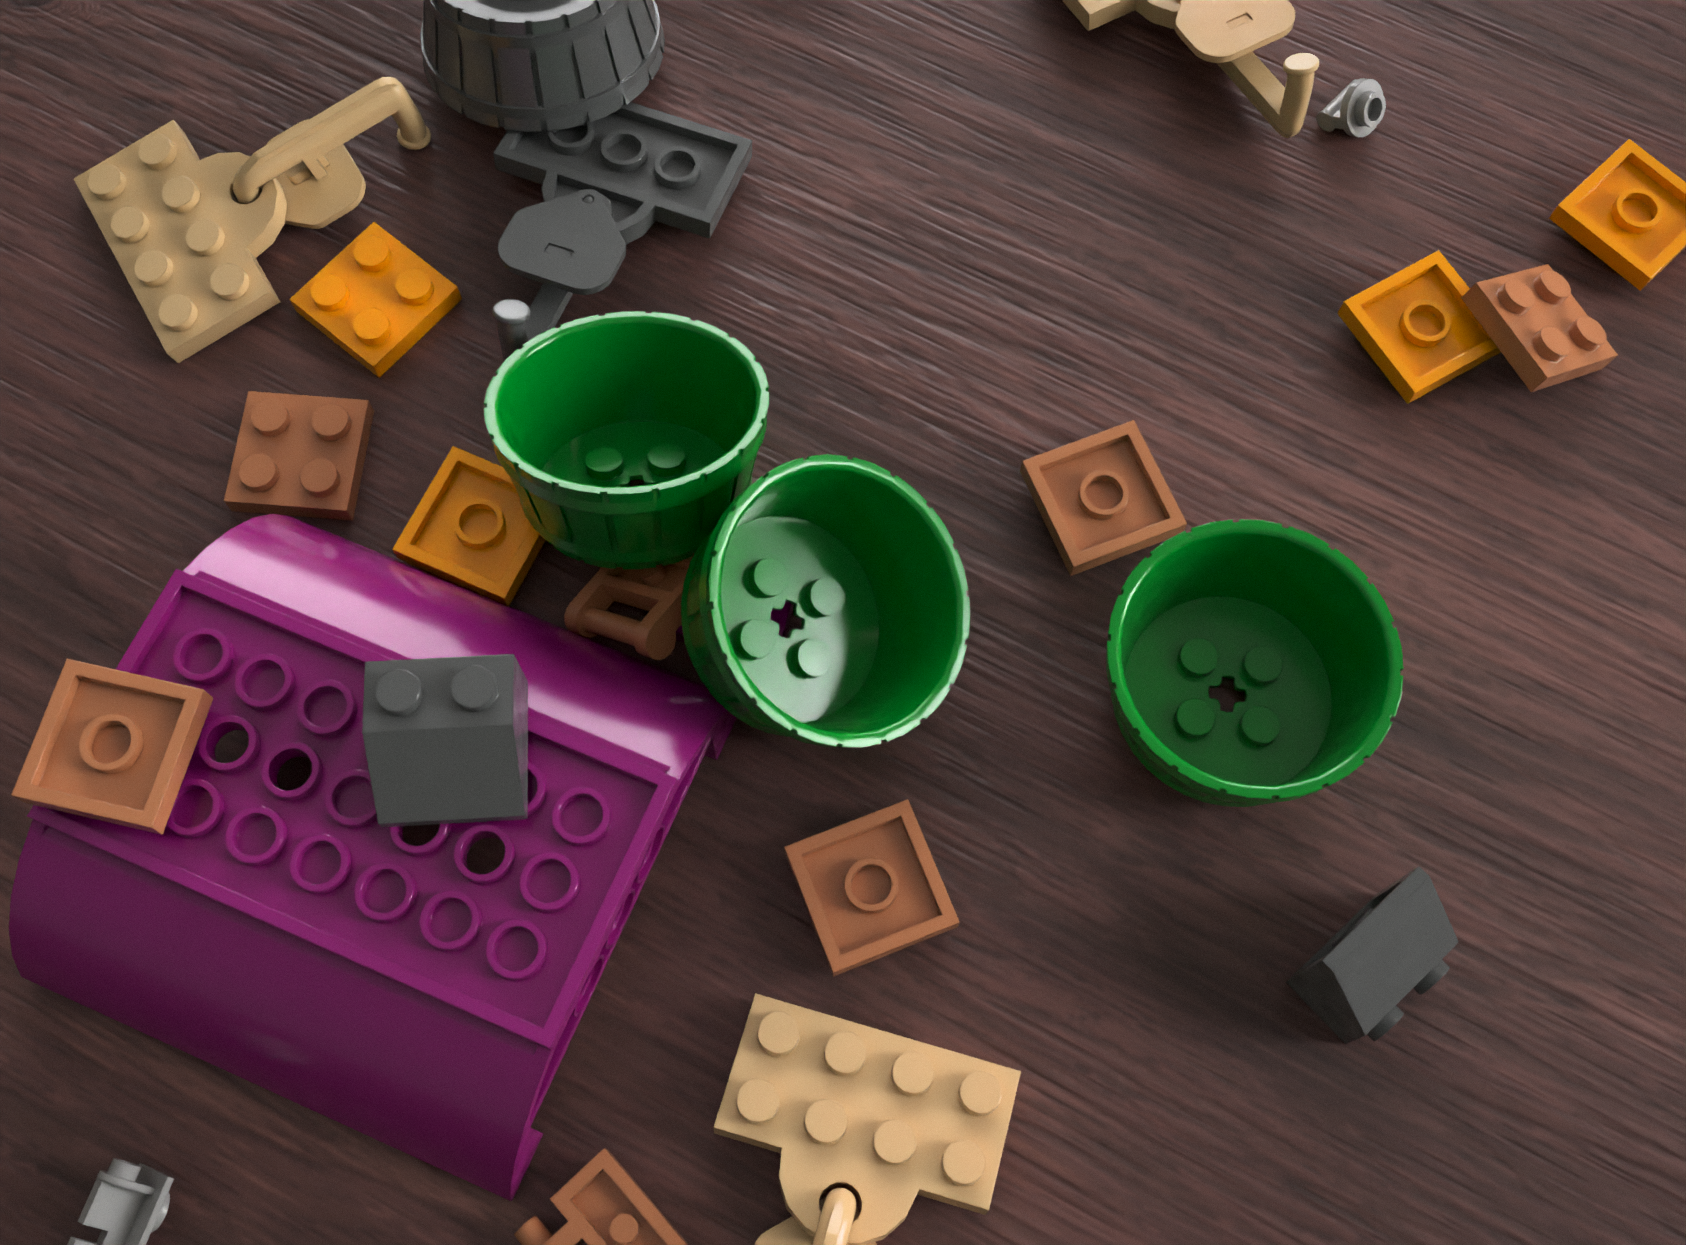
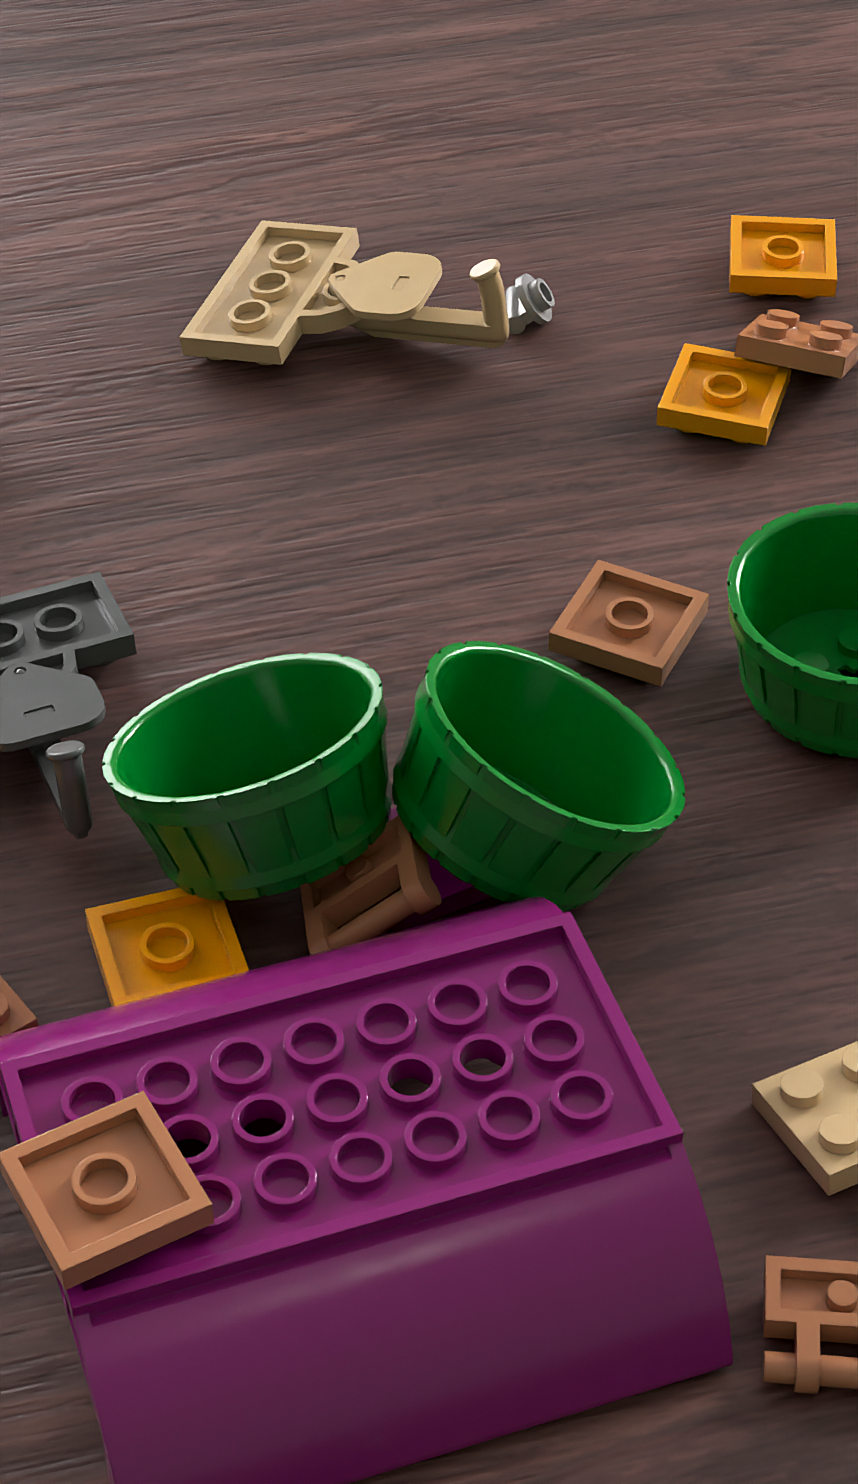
camera: 40 degrees left, 25 degrees down
(447, 739) = (379, 986): dark grey slope -> none
(871, 887) = (753, 959): nougat plate -> none

